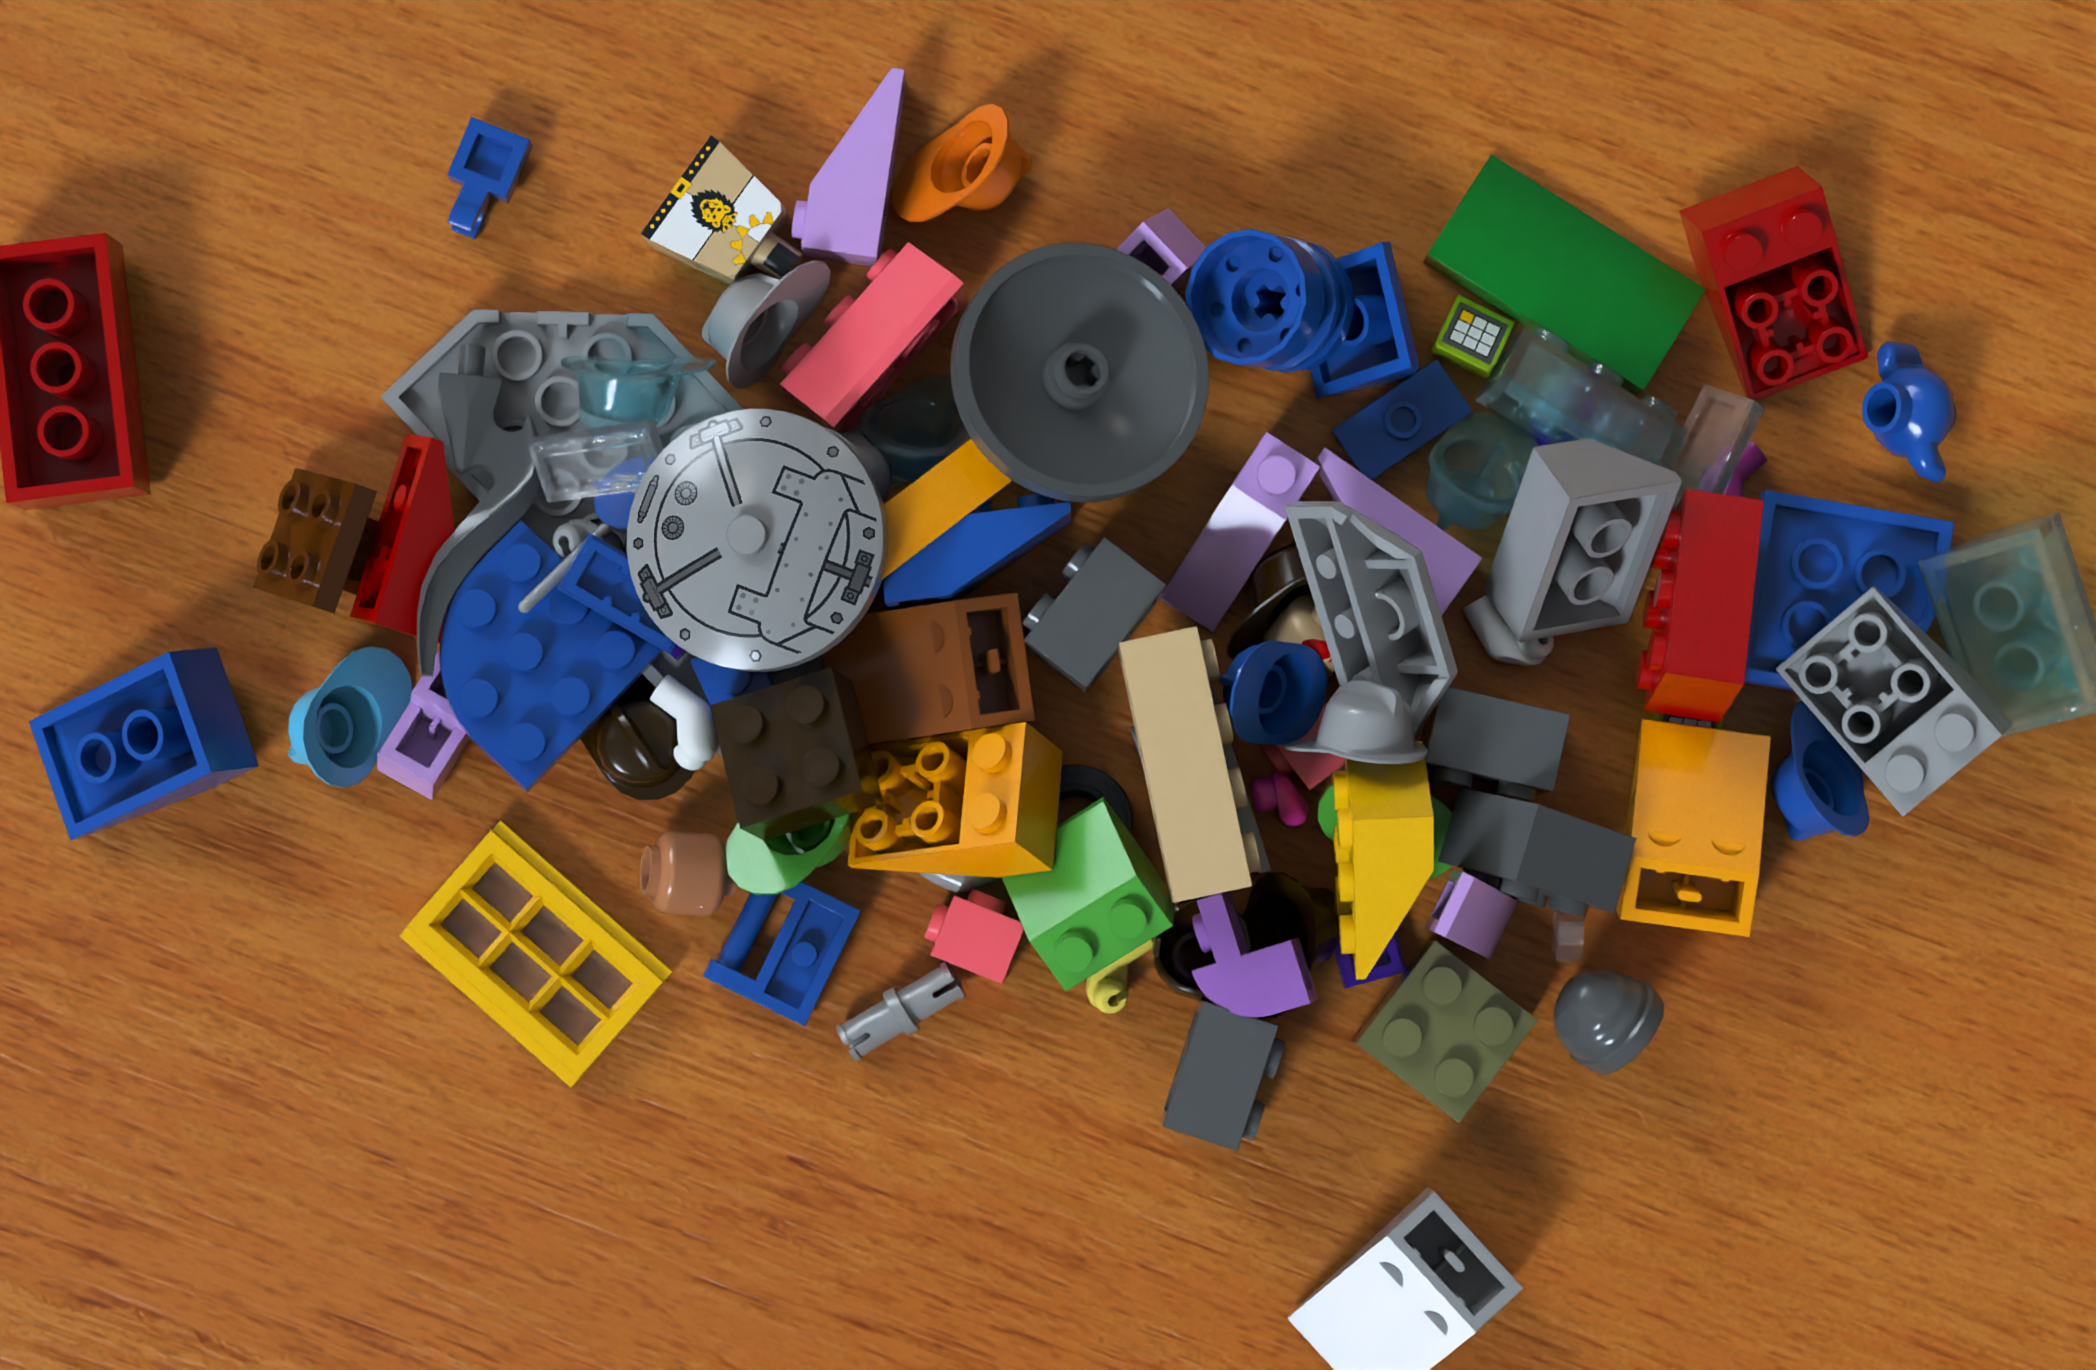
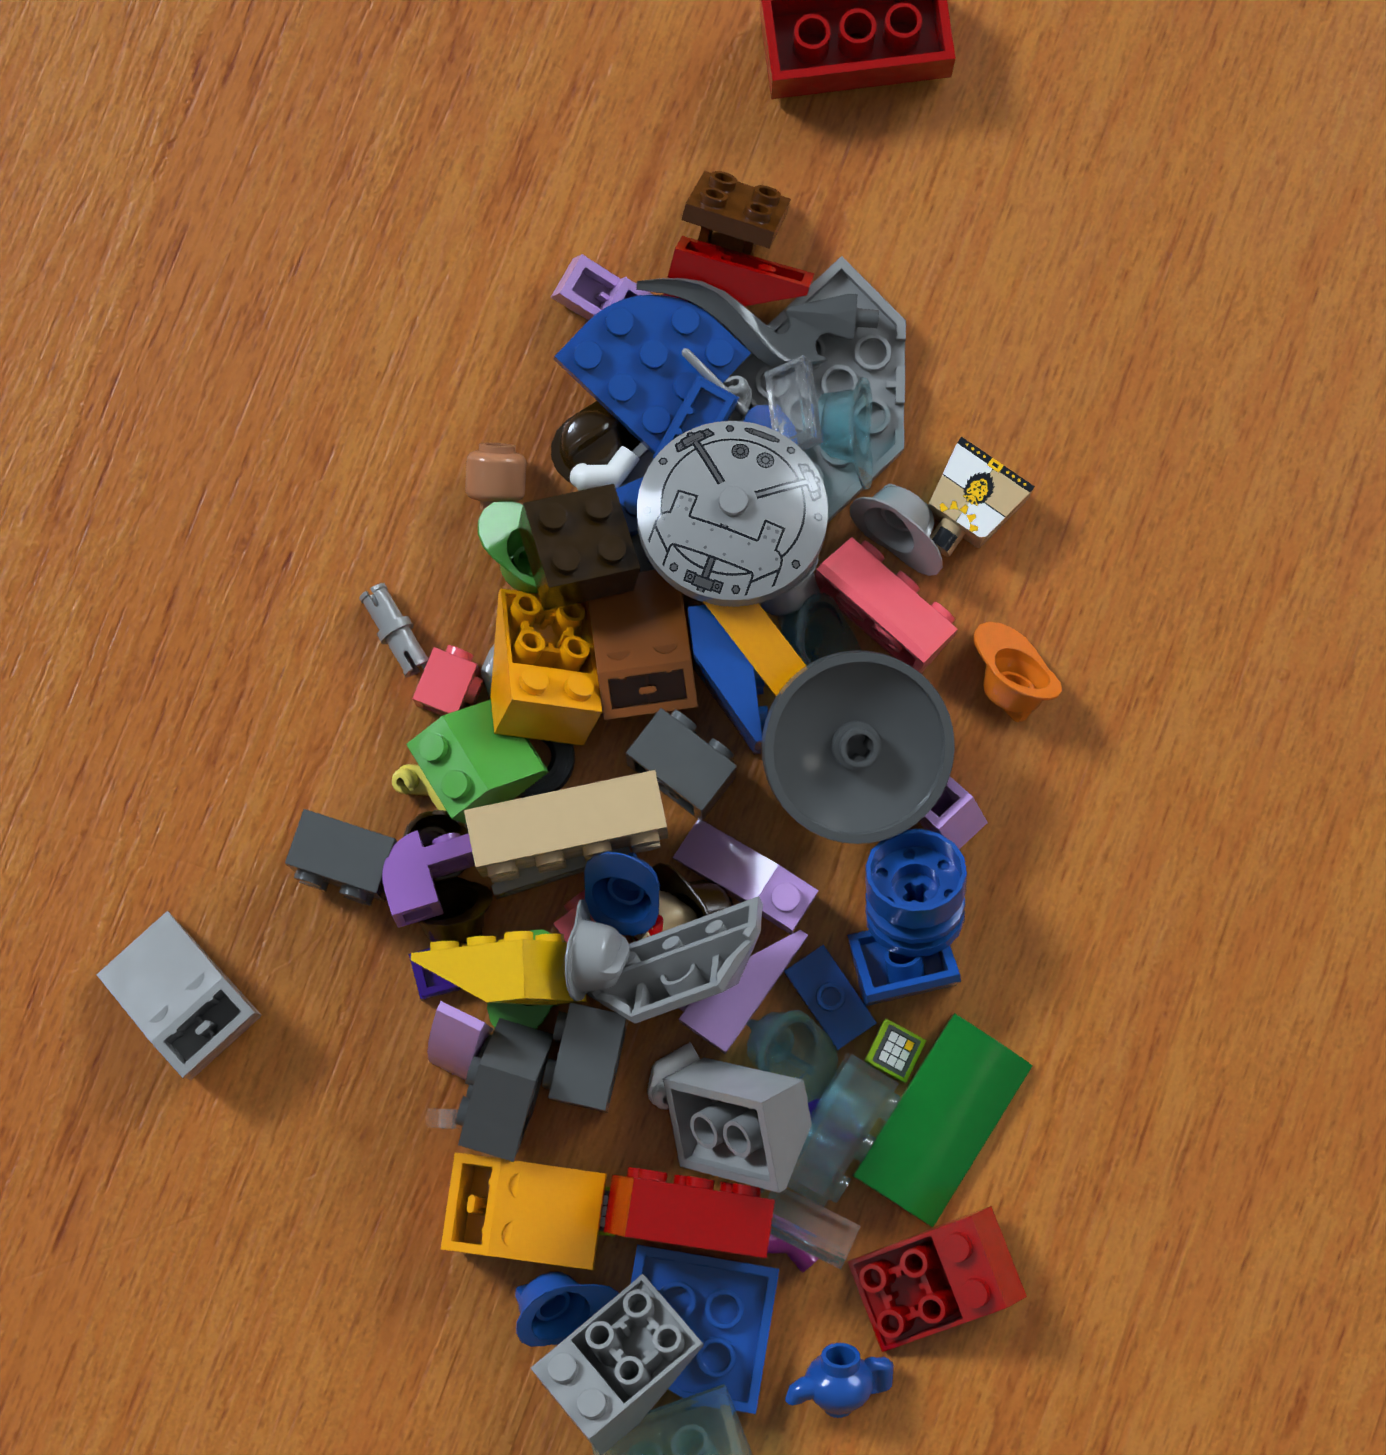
camera: 85 degrees right, 5 degrees down
(143, 741) = (593, 96): blue slope -> none
(350, 716) = (610, 236): medium azure piece -> none
(487, 167) = (1011, 331): blue plate -> none
(536, 953) = (439, 371): yellow piece -> none
(799, 957) = (434, 556): blue plate -> none
(852, 189) = (998, 592): lavender slope -> none
(1282, 795) = (550, 903): dark pink arm -> none
(1444, 1030) = (374, 1025): olive brick -> none
(1606, 1018) = (383, 1144): dark grey hat -> none

